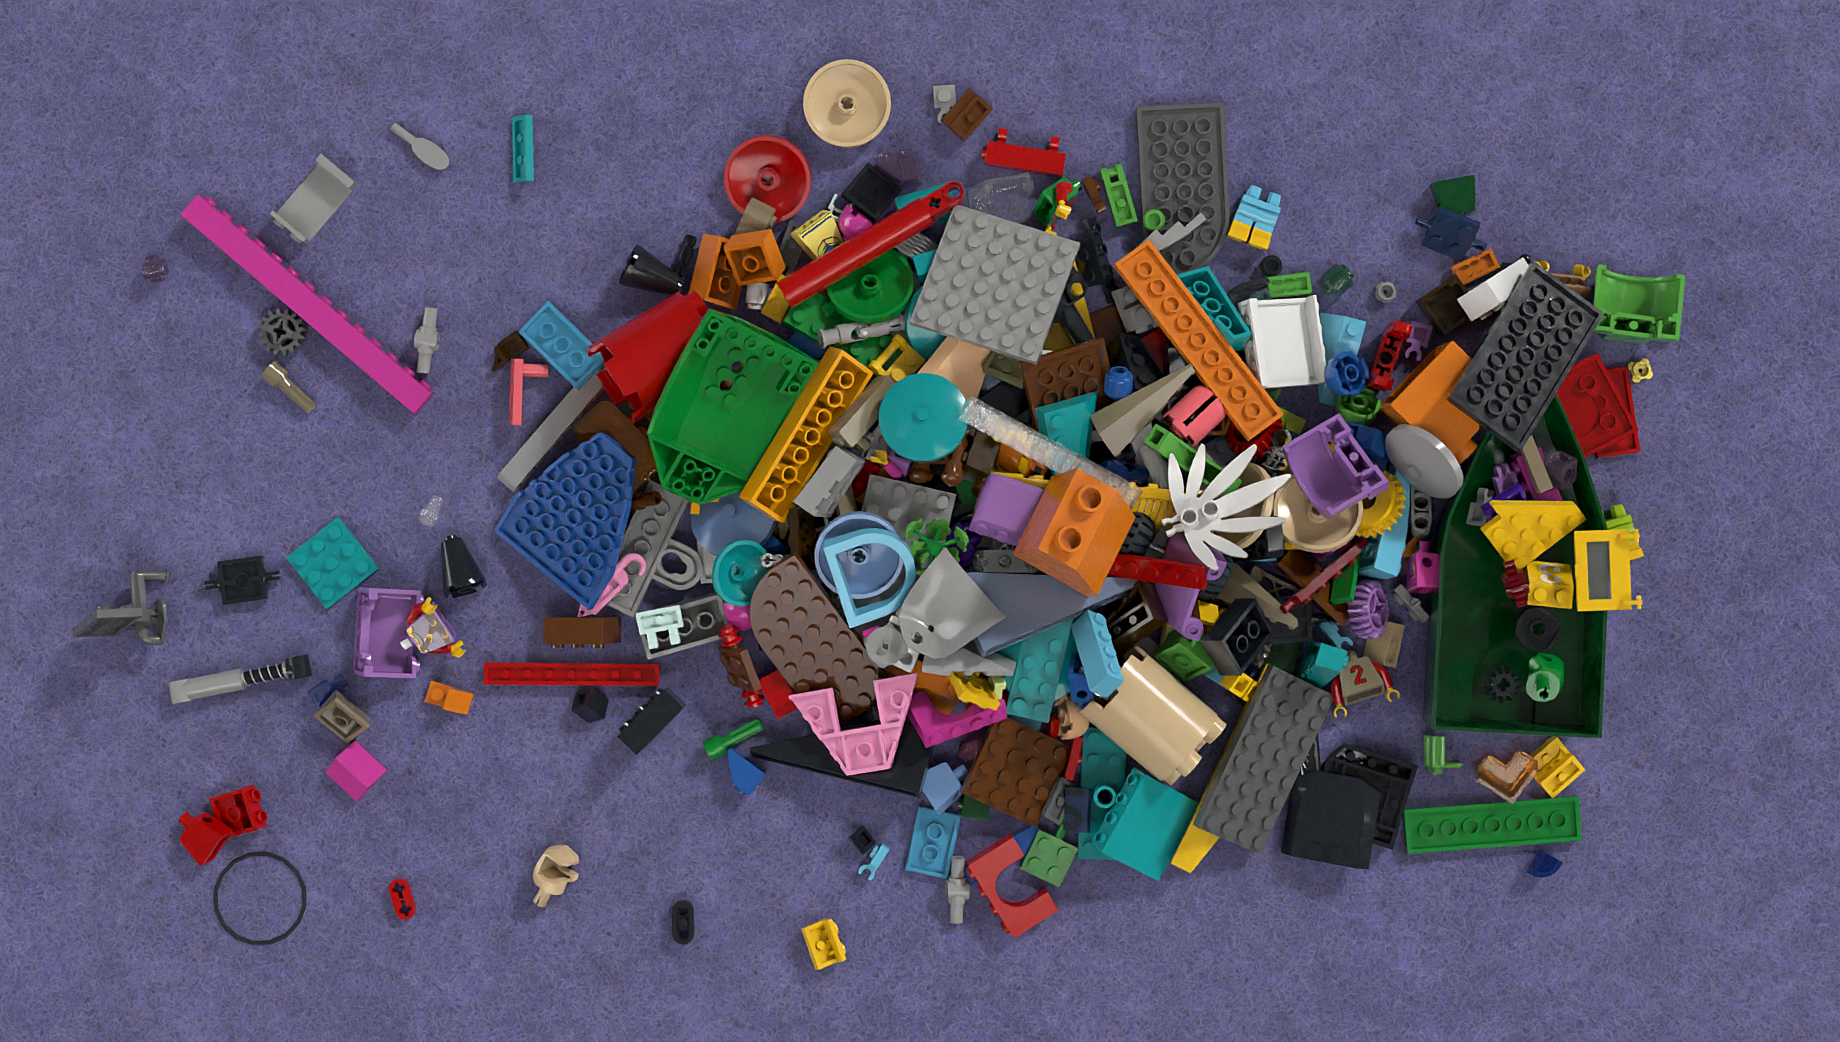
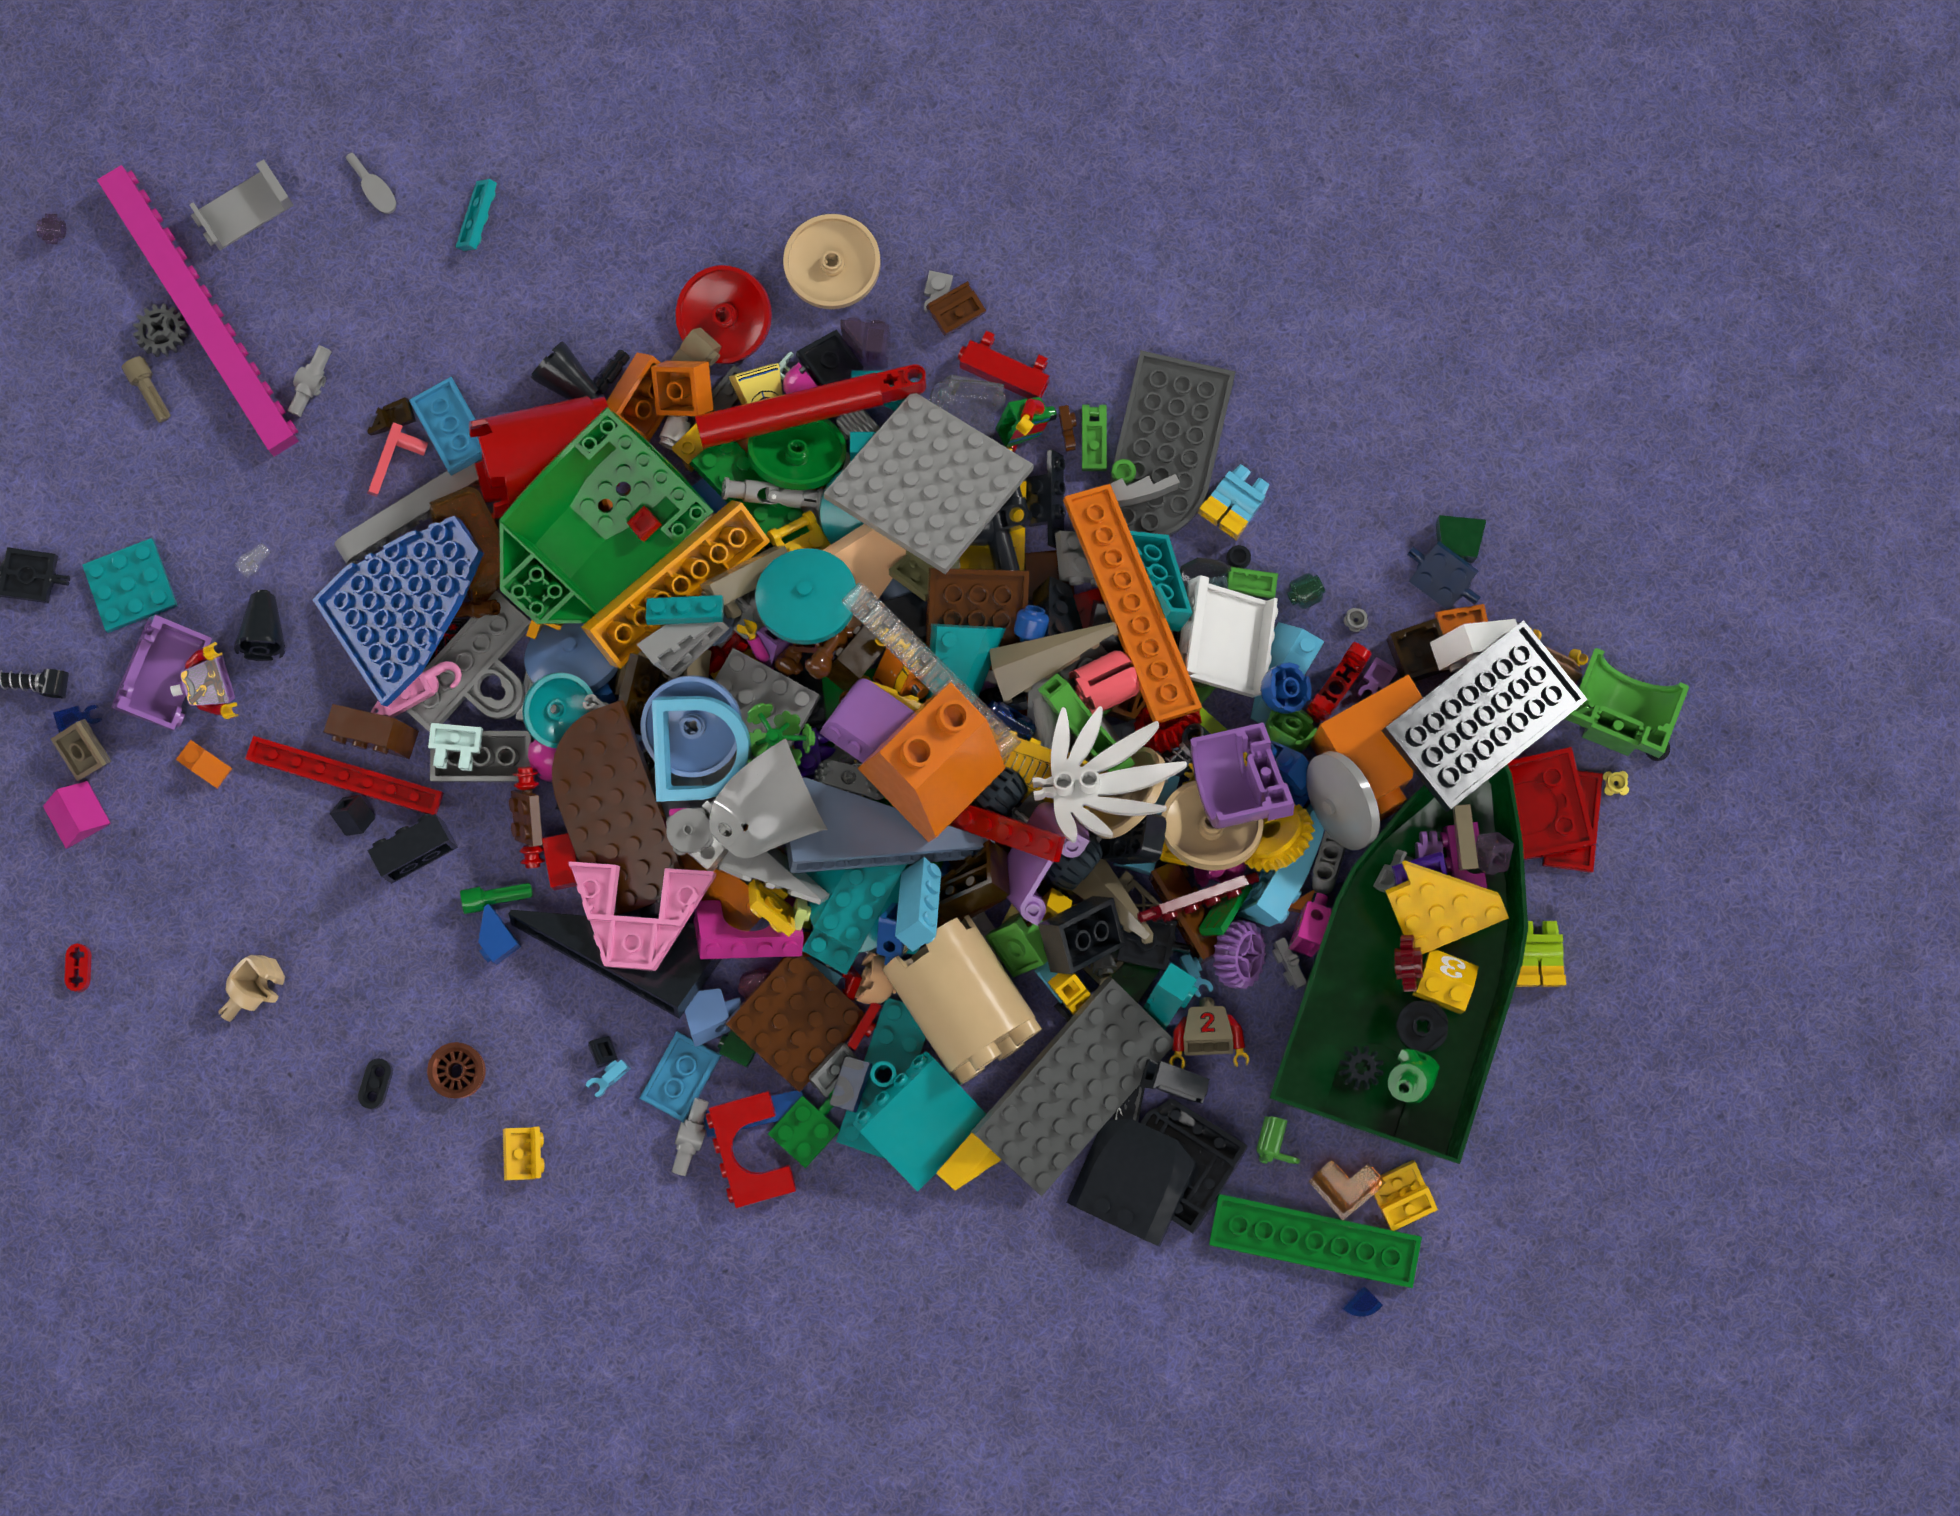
camera: 15 degrees right, 10 degrees down
(731, 902) = (435, 1065): none -> copper wheel
(763, 391) = (644, 523): none -> red tile
(824, 460) = (684, 610): none -> teal plate
(1342, 730) = (1174, 1081): none -> black window
(1386, 647) = (1251, 1003): tan panel -> none
(1604, 570) = (1511, 975): yellow piece -> none

